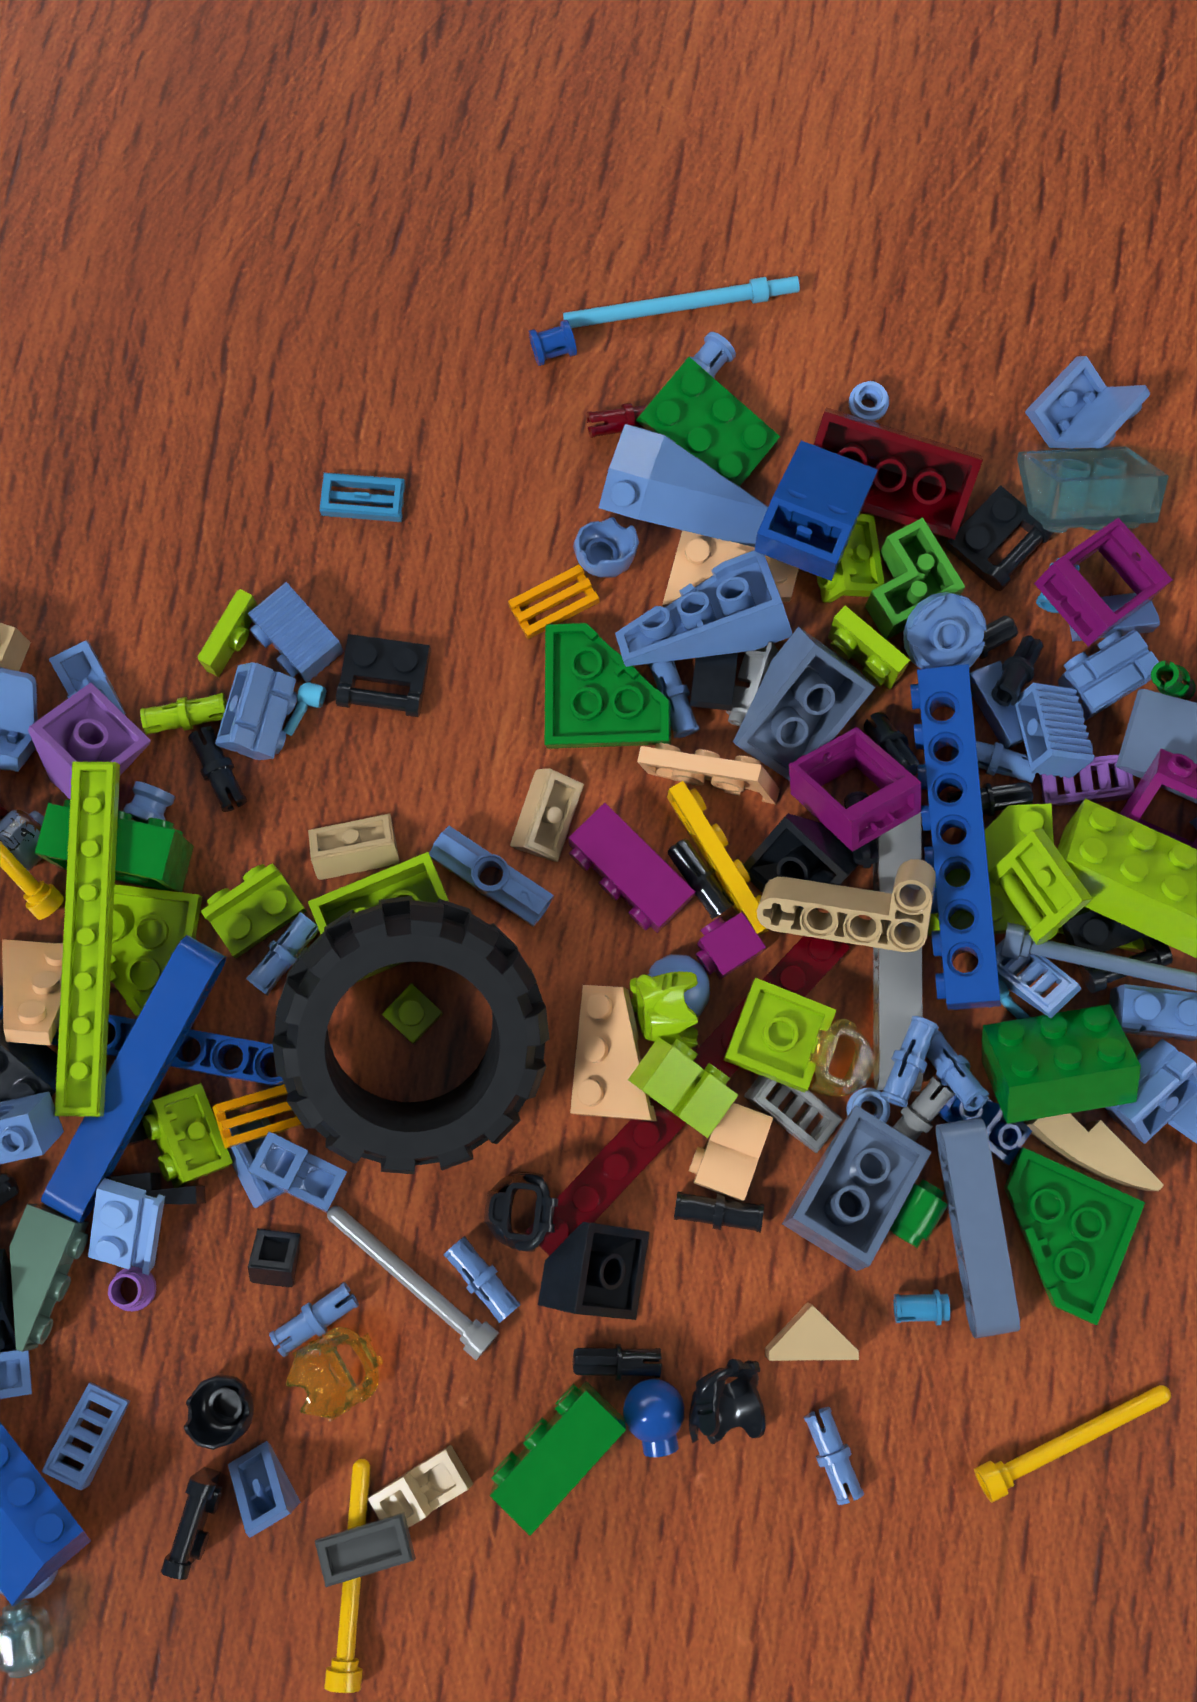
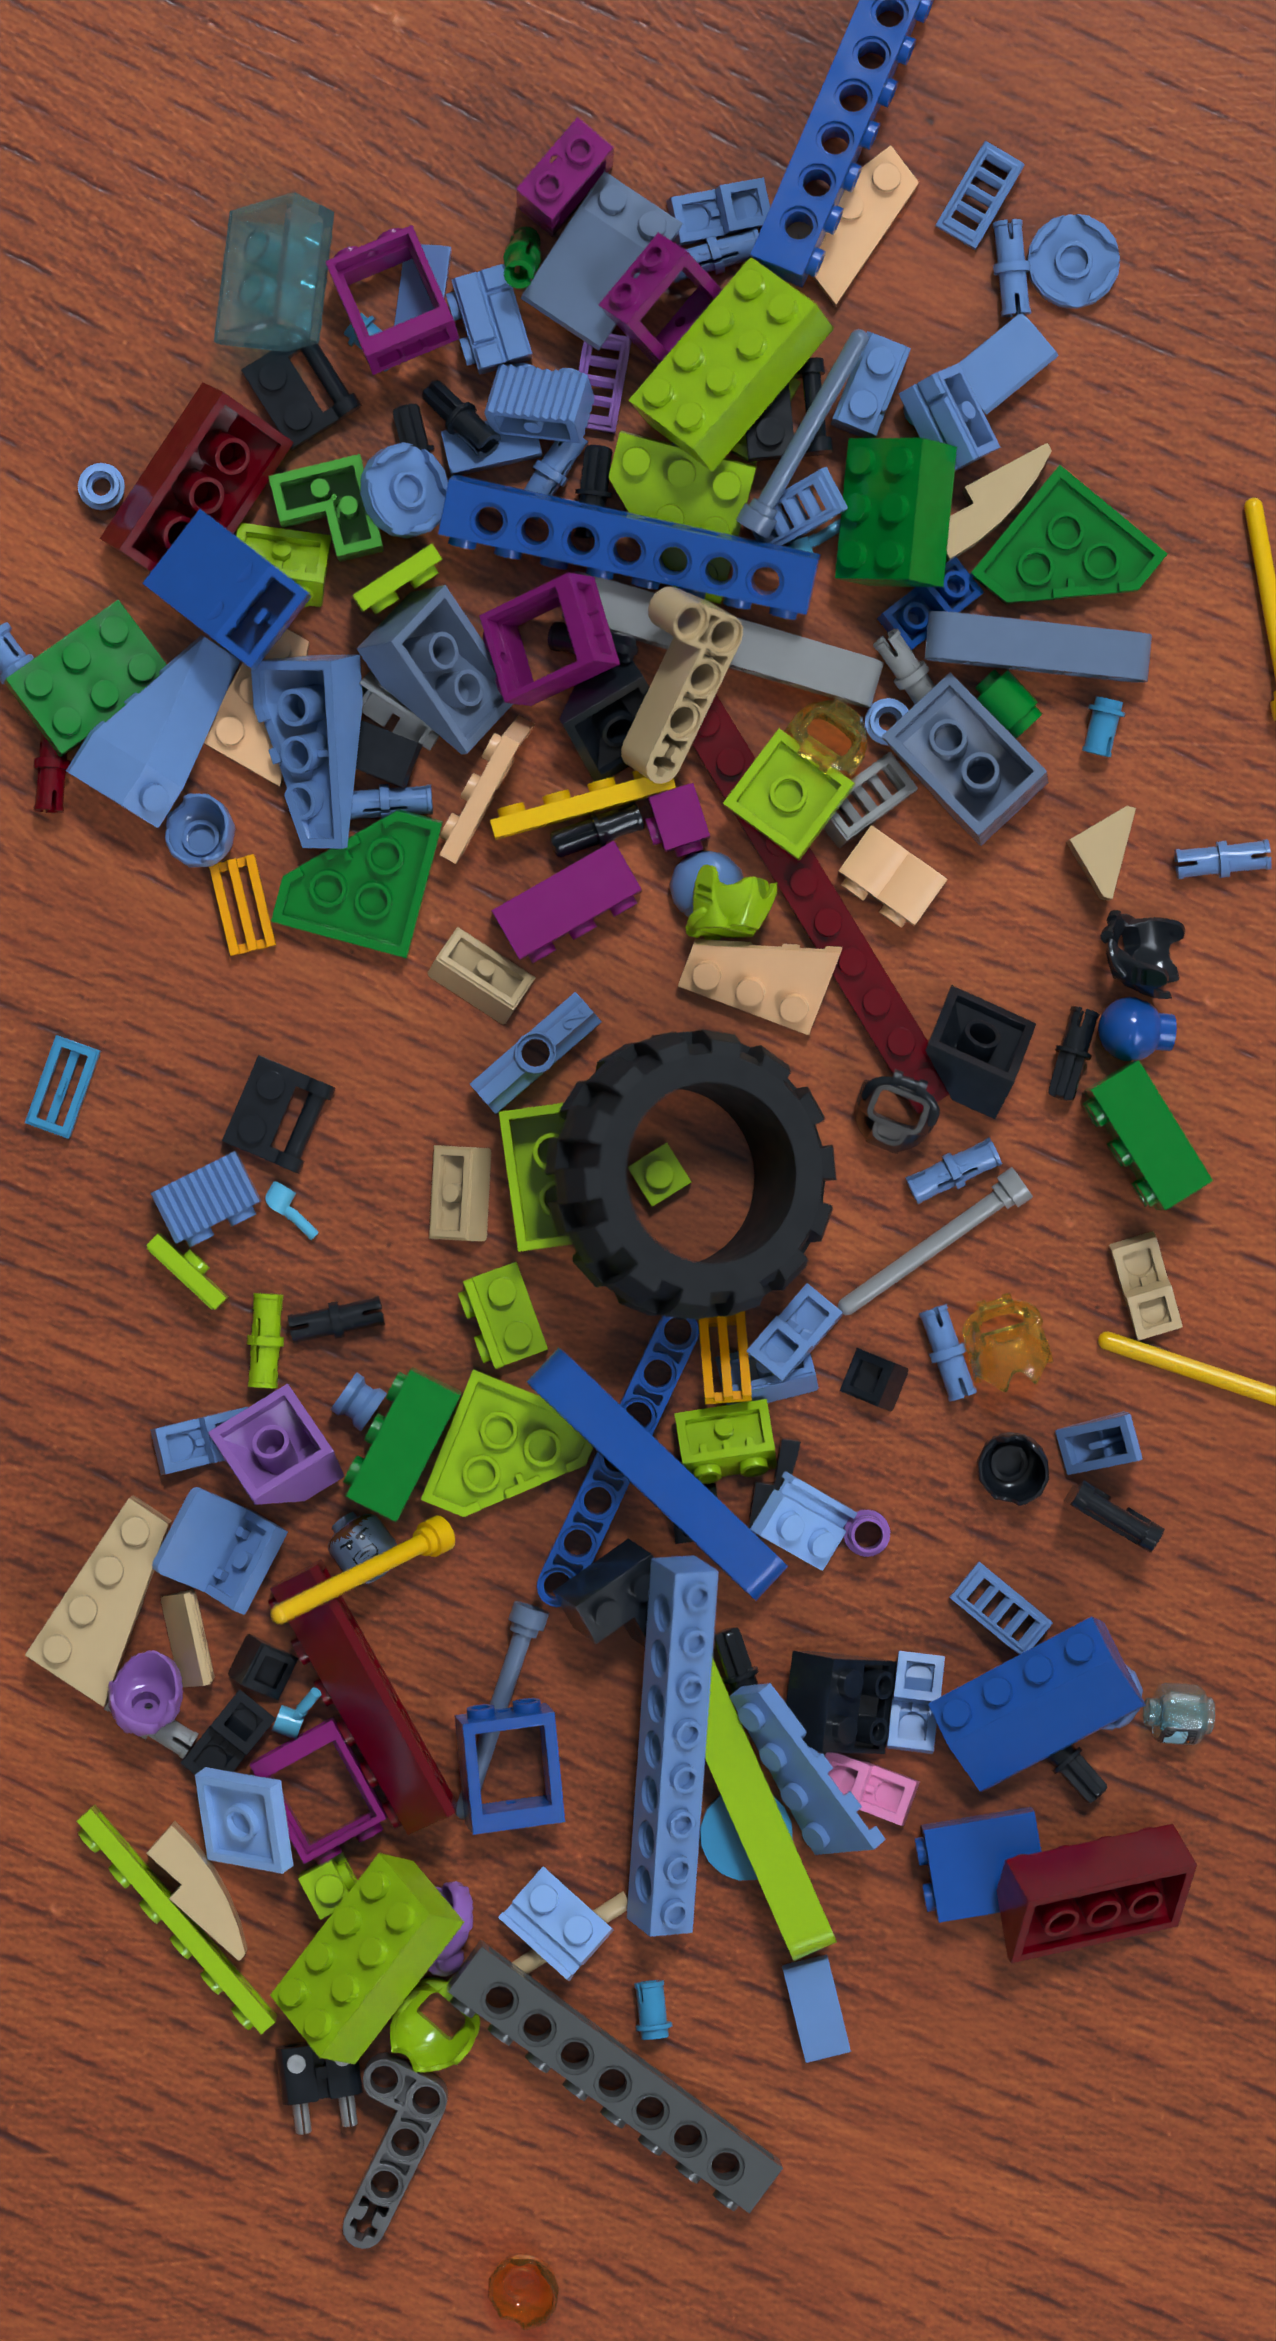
camera: 80 degrees left, 10 degrees up
(31, 990) = (530, 1557): light nougat wing -> none
(40, 1263) = (814, 1618): sand green slope -> none
(87, 940) = (501, 1484): lime tile -> none
(257, 712) = (288, 1260): medium blue brick -> none
(283, 953) = (559, 1295): medium blue pin -> none
(365, 1549) = (1185, 1352): dark grey tile -> none
(683, 1086) = (816, 910): lime piece -> none
(719, 1212) = (951, 907): black pin -> none
(891, 741) = (507, 582): black axle -> none
(909, 1061) = (852, 668): medium blue pin -> none
(955, 1072) = (873, 623): medium blue pin -> none
(1047, 880) = (710, 480): lime plate -> none
(1081, 409) = (181, 250): medium blue bracket -> none

